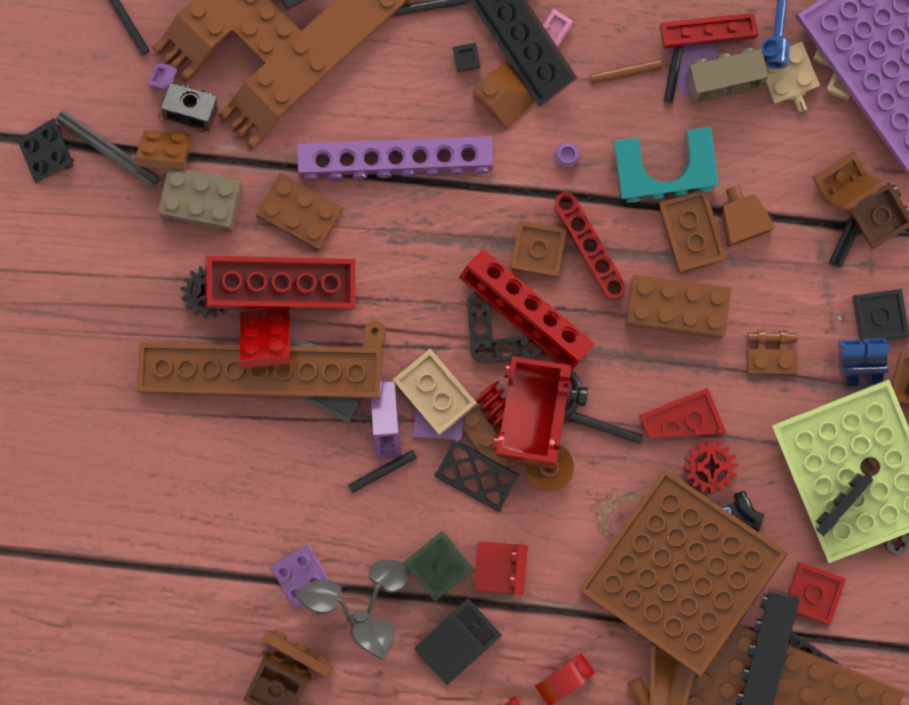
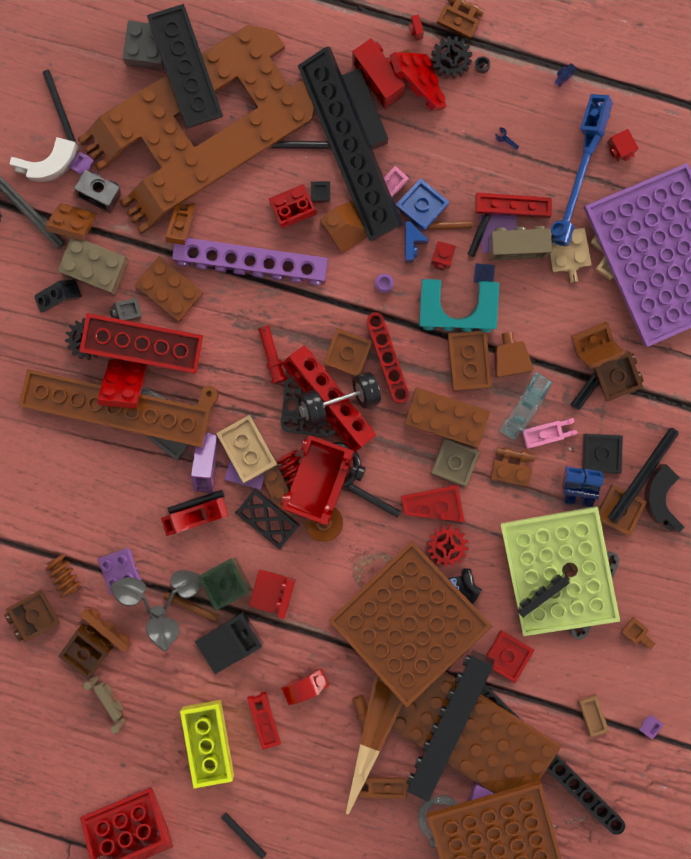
camera: 15 degrees right, 5 degrees up
(125, 89) = (53, 166): none -> white arch
(159, 243) = (56, 294): none -> black bracket
(200, 655) = (31, 616): none -> reddish brown plate
(231, 595) = (62, 576): none -> dark orange piece
(251, 246) = (126, 310): none -> dark grey bracket
(301, 127) = (180, 223): none -> dark orange plate
(385, 488) = (194, 516): none -> red arch
(402, 606) = (192, 607): none -> dark orange bar
(435, 81) = (292, 206): none -> red brick
(449, 280) = (274, 363): none -> red pin
(569, 290) = (365, 389): none -> black axle
(592, 91) = (412, 237): none -> blue slope
(596, 50) = (422, 204): none -> blue plate
(633, 108) = (443, 255): none -> red bracket
(688, 119) = (484, 272): none -> clear blue plate
(699, 361) = (455, 462): none -> dark tan tile
(774, 274) = (526, 406): none -> clear light blue arch
(806, 303) = (546, 433): none -> bright pink hinge

